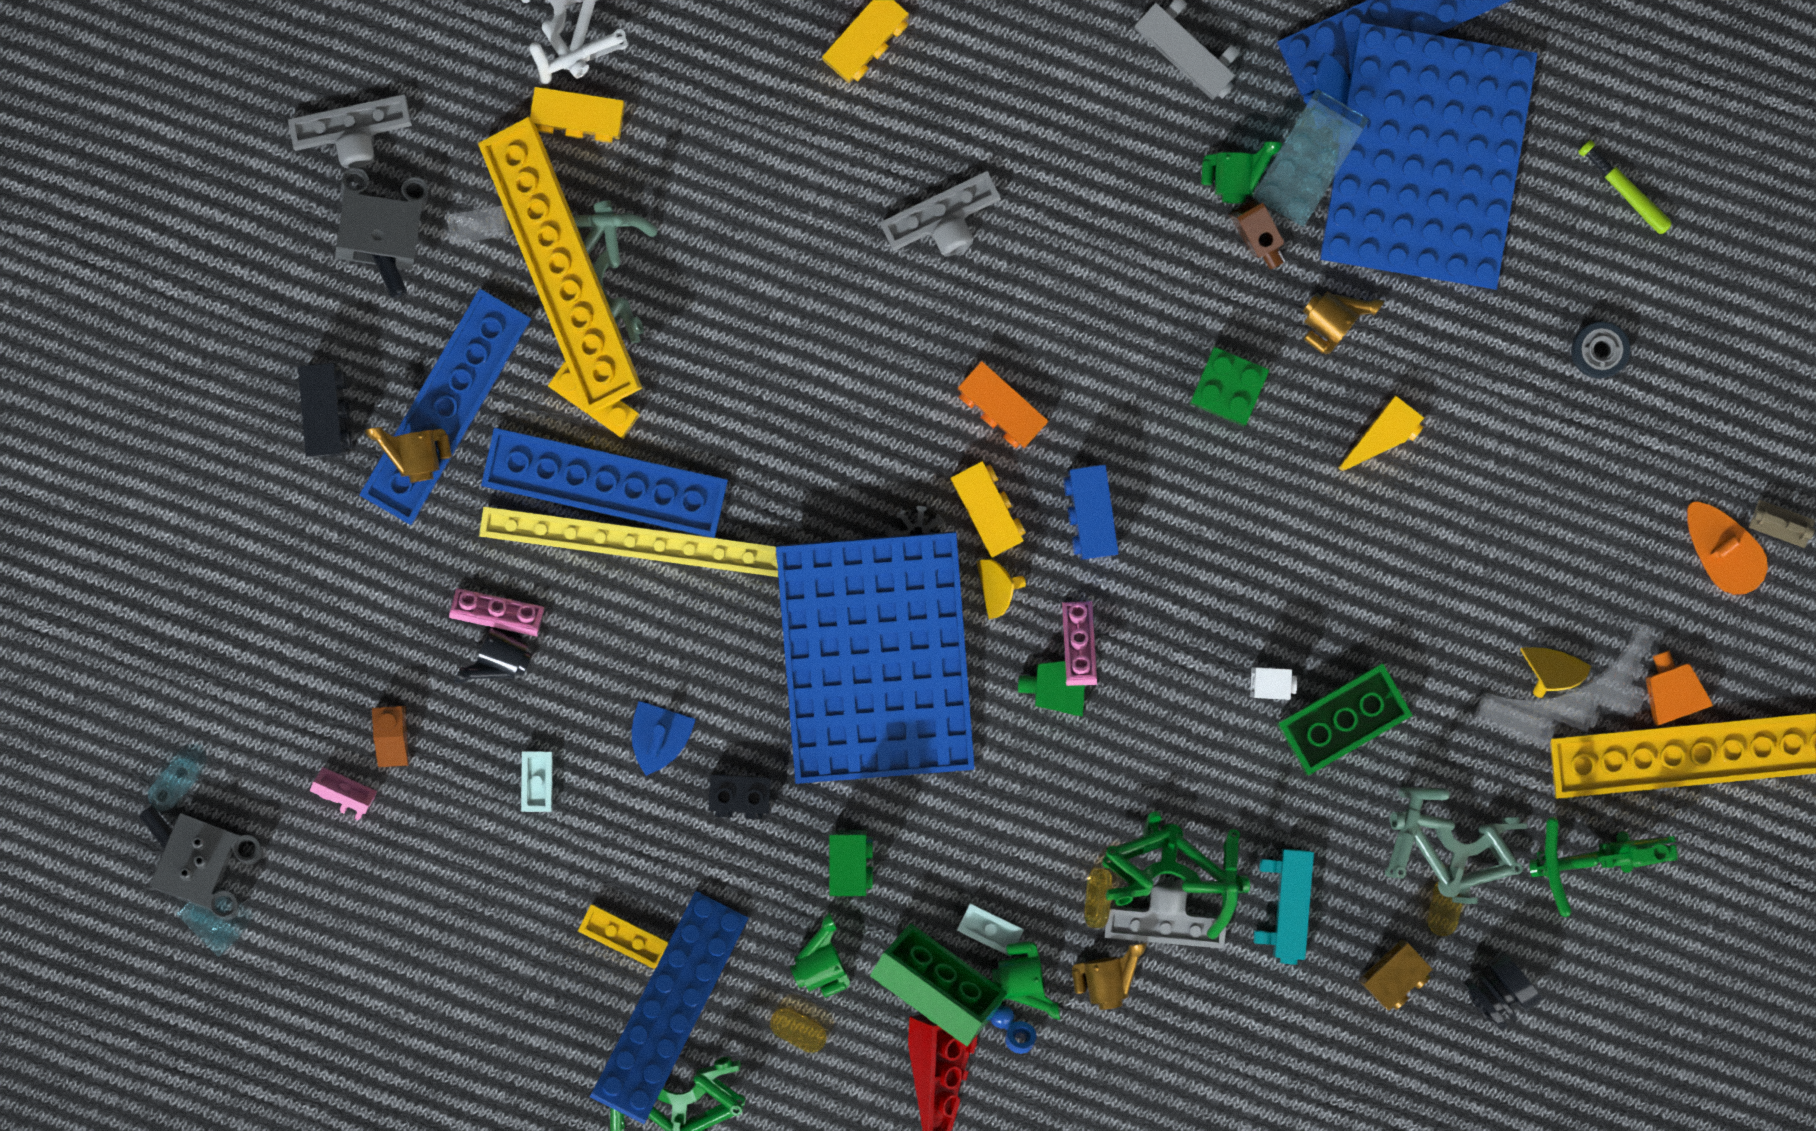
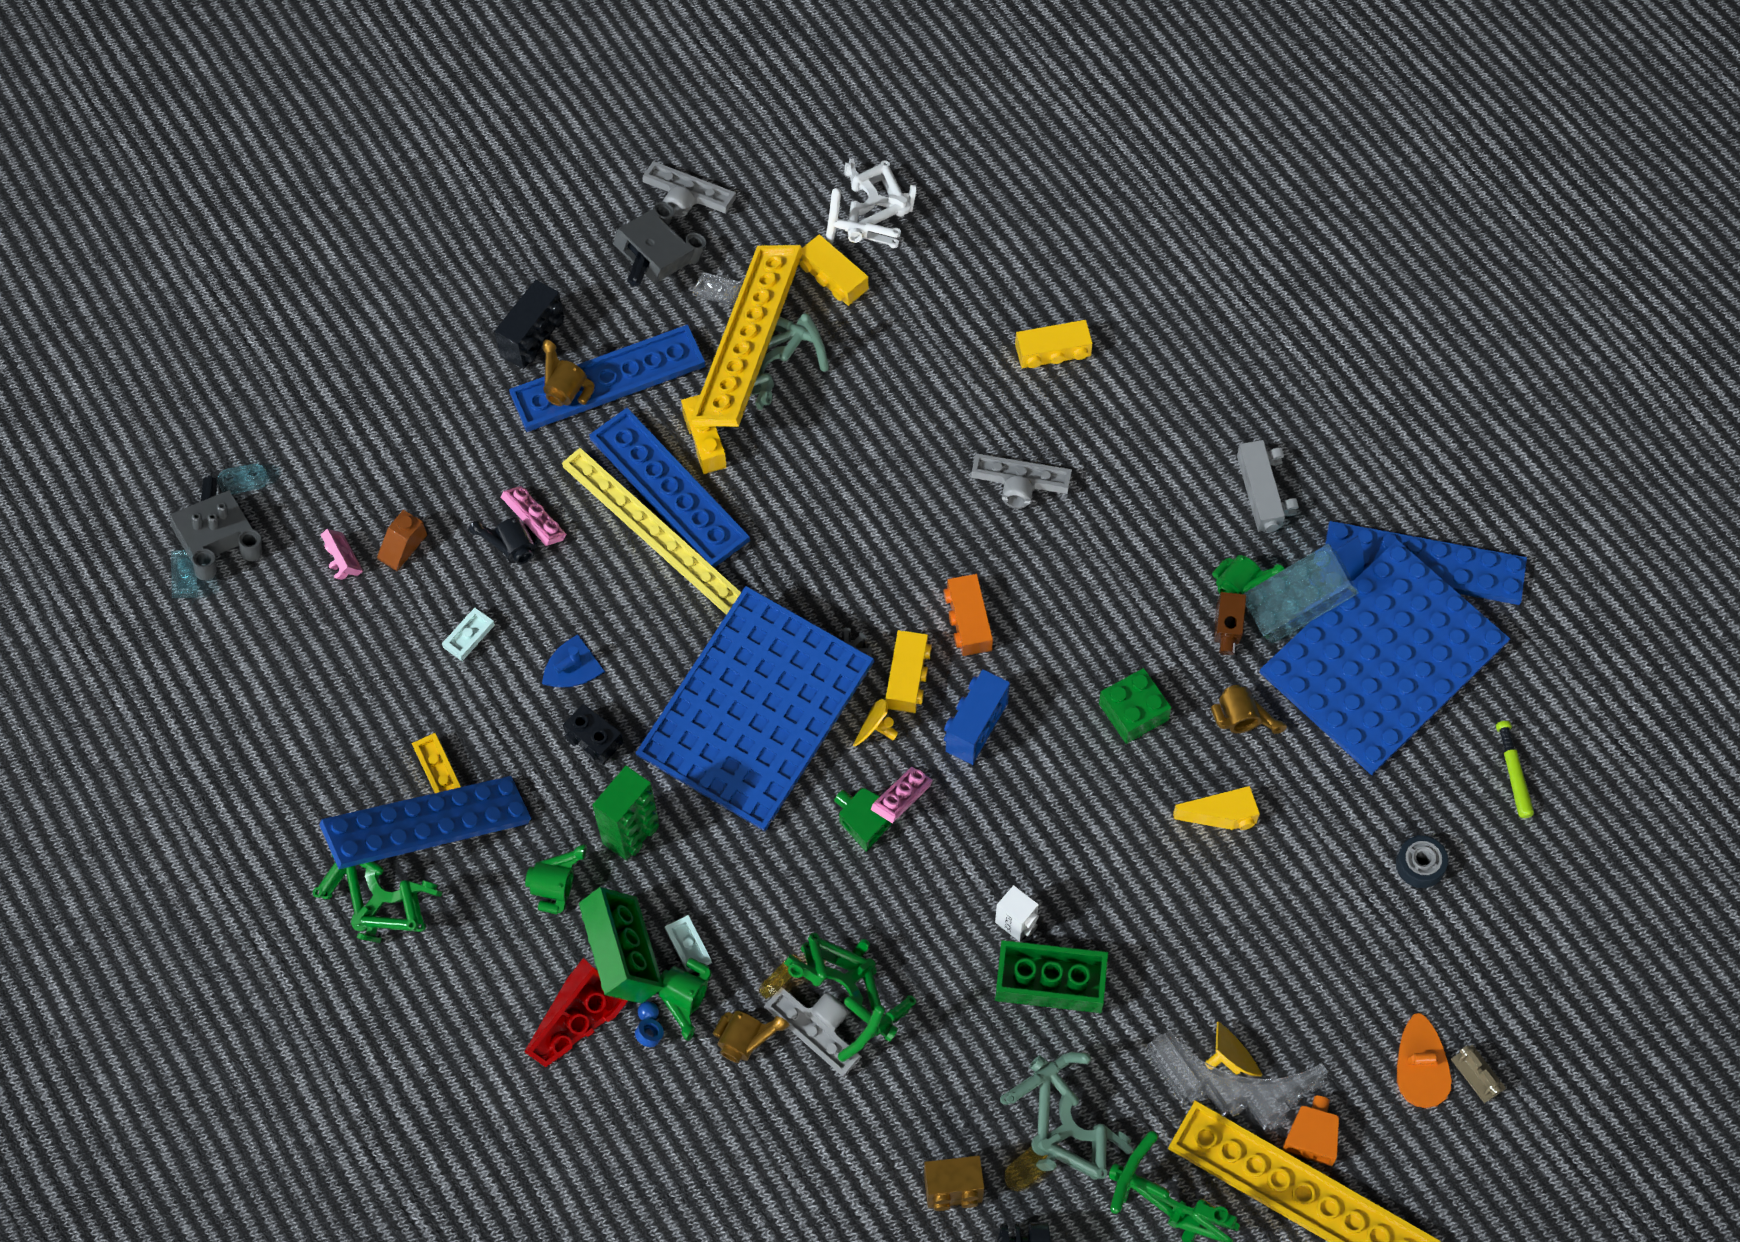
camera: 40 degrees right, 25 degrees down
(798, 1030) = (501, 917): clear yellow tile -> none
(1292, 905) = (915, 1082): teal brick -> none

